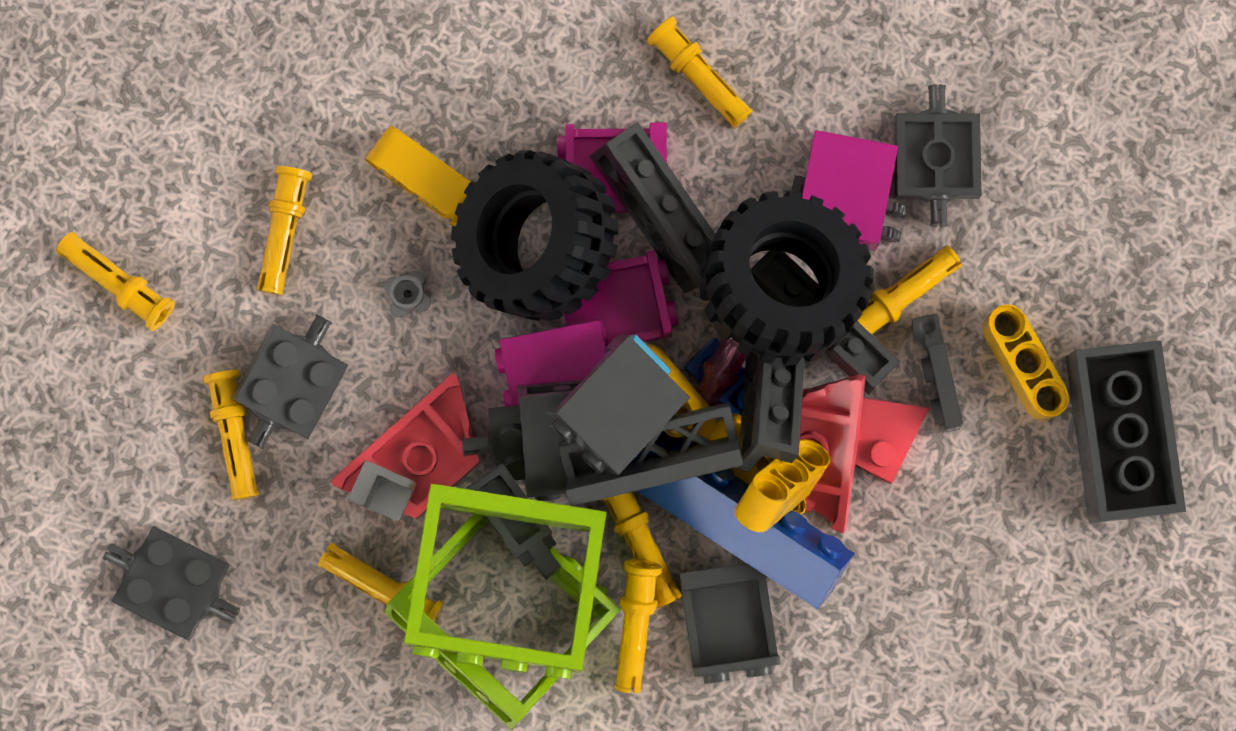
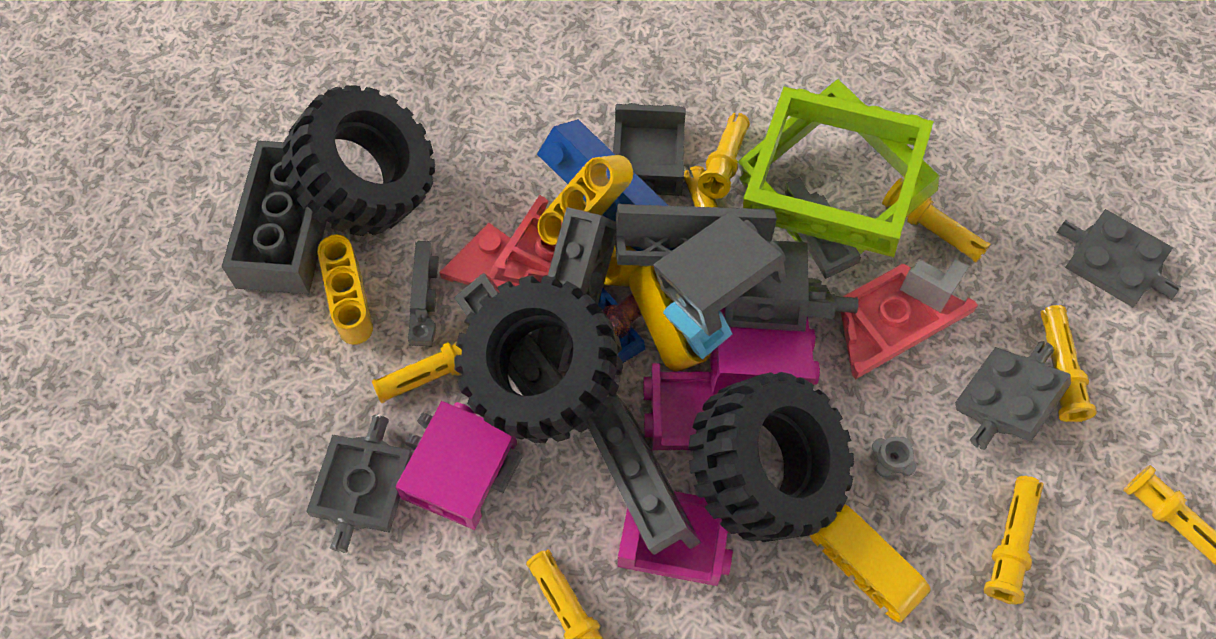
camera: 170 degrees left, 20 degrees down
(1003, 509) = (336, 191): none -> black tyre

